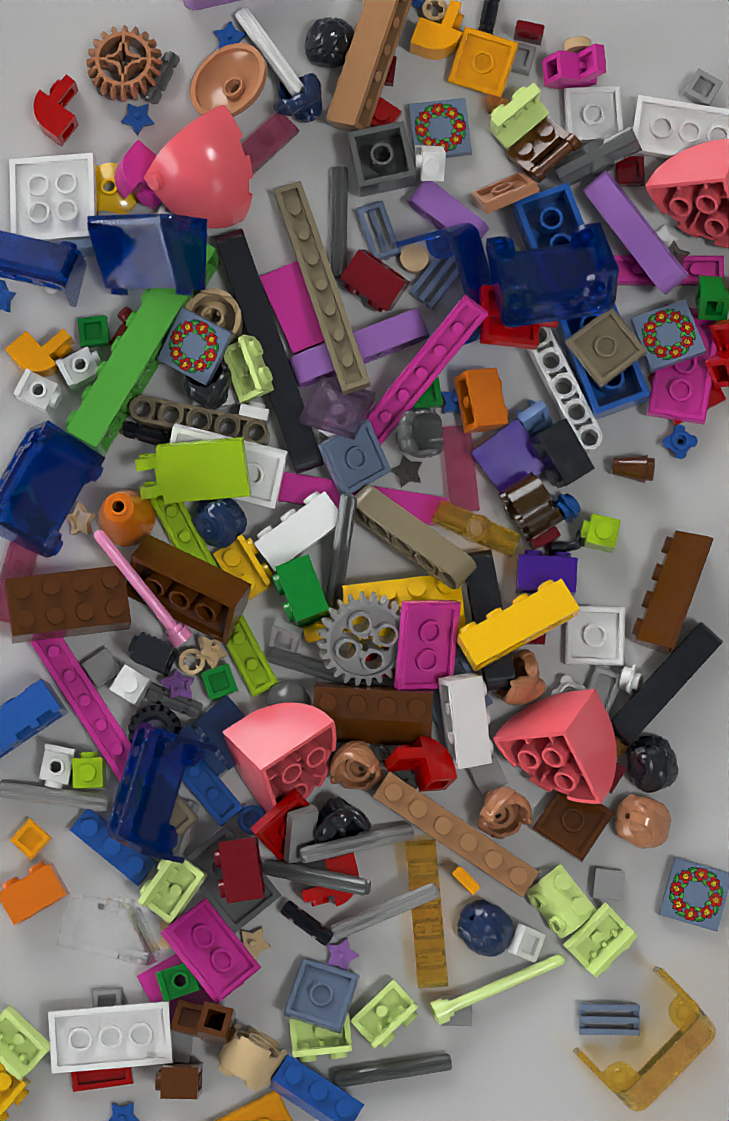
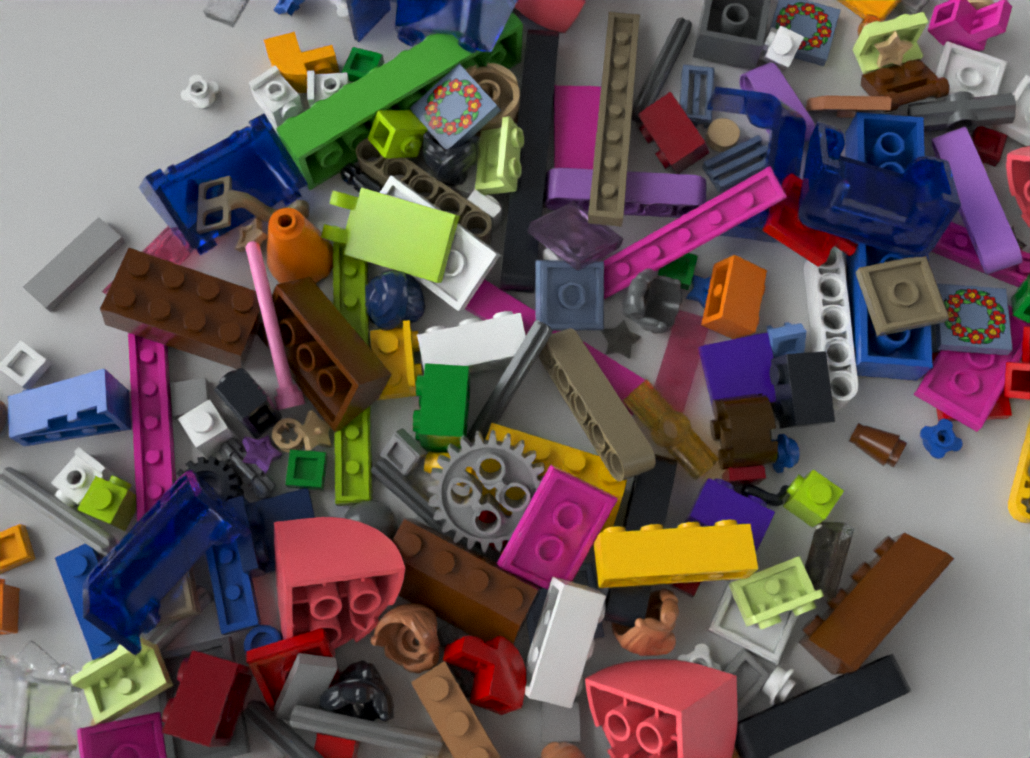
camera: 20 degrees right, 10 degrees down
(56, 500) = (232, 200): none -> dark tan piece
(159, 386) = (397, 134): none -> lime brick
(521, 124) = (892, 50): none -> tan piece
(600, 616) = (774, 592): none -> yellowish green bracket
(628, 574) = (828, 556): none -> clear smoke plate

